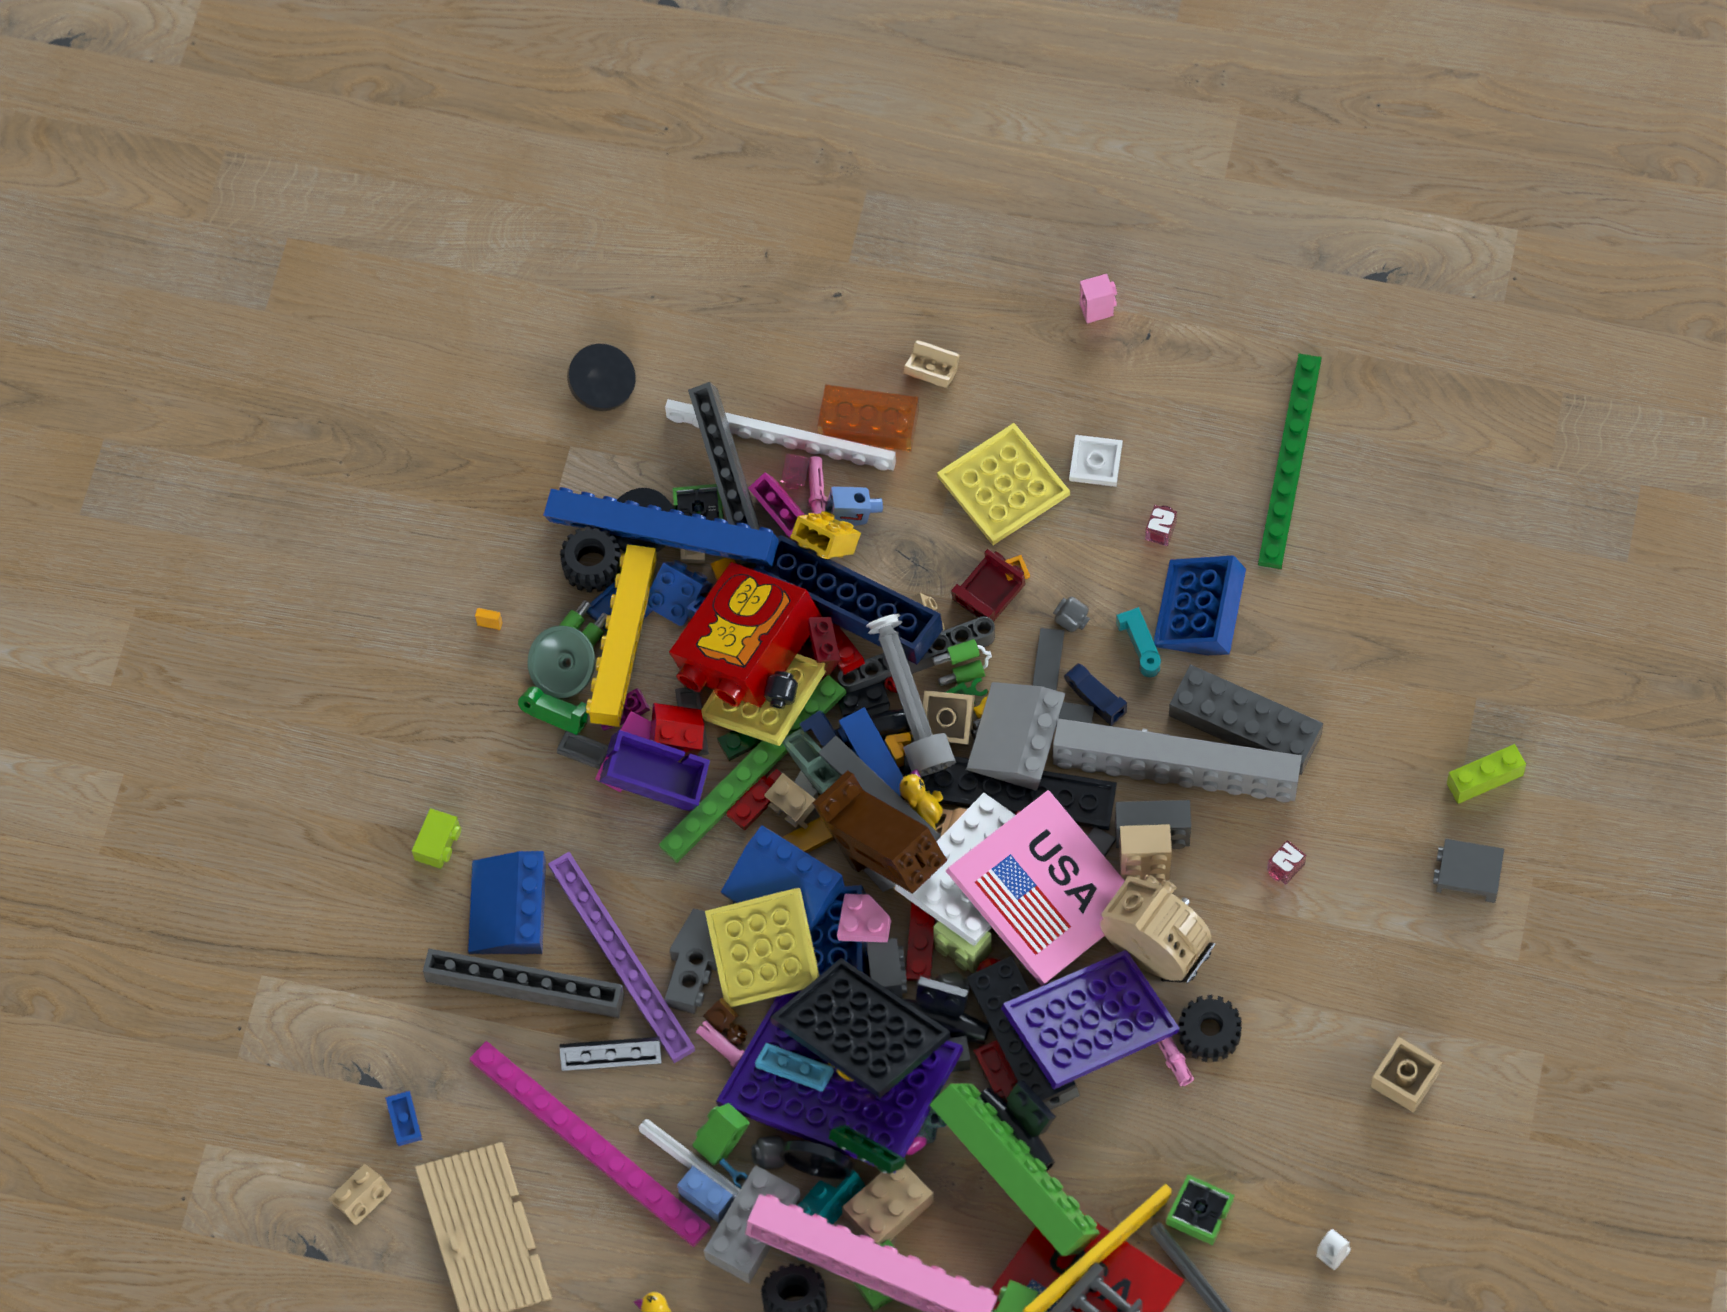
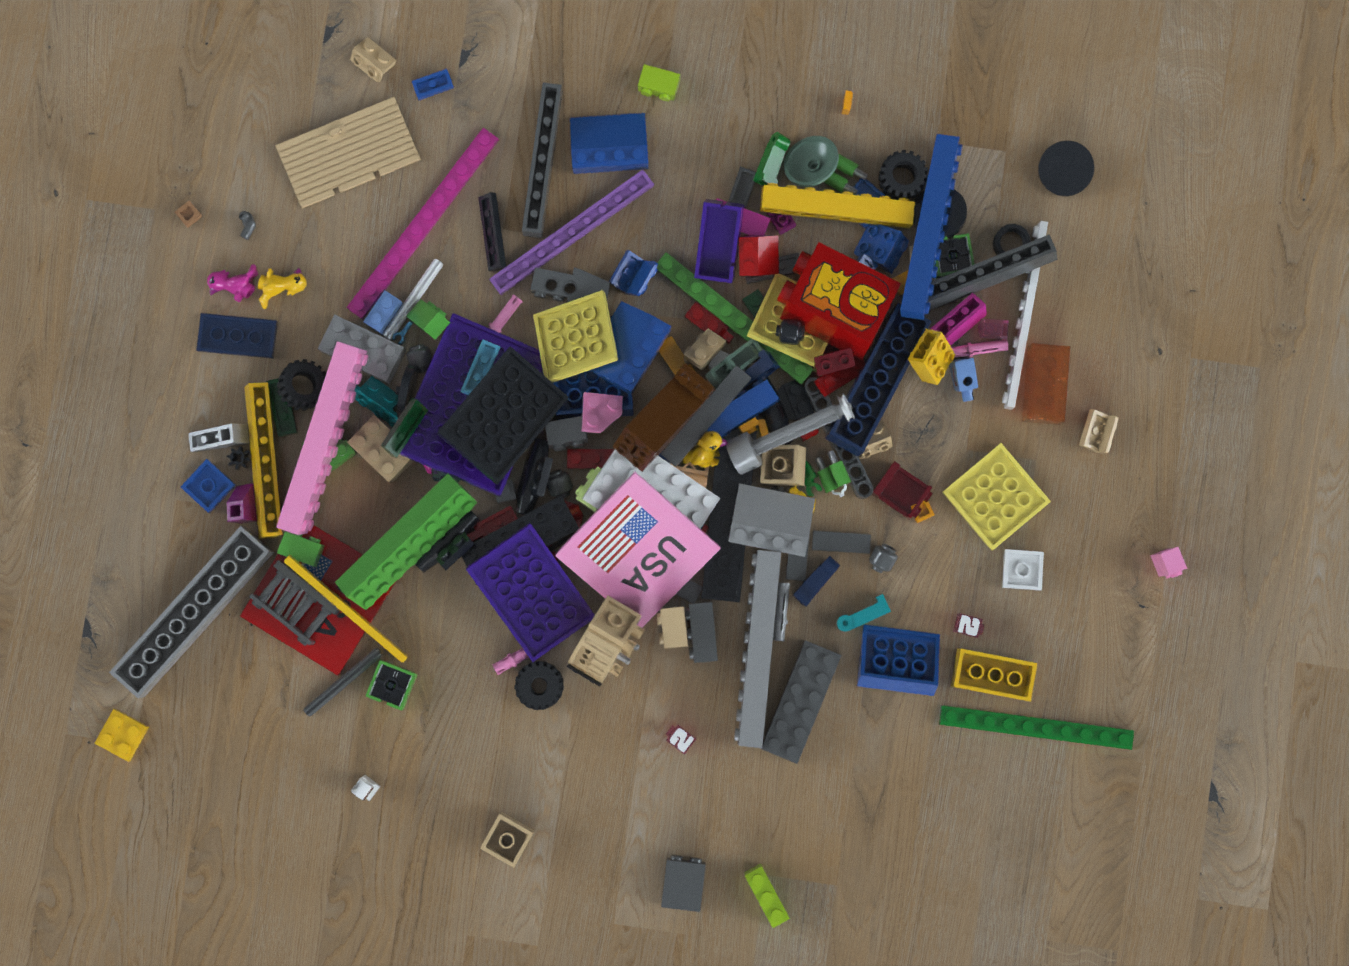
camera: 80 degrees right, 20 degrees up
(681, 461) = (1022, 232): none -> black tyre
(686, 879) = (633, 274): none -> blue bracket
(722, 1017) = (525, 313): reddish brown plate -> none
(1223, 498) = (993, 674): none -> yellow brick

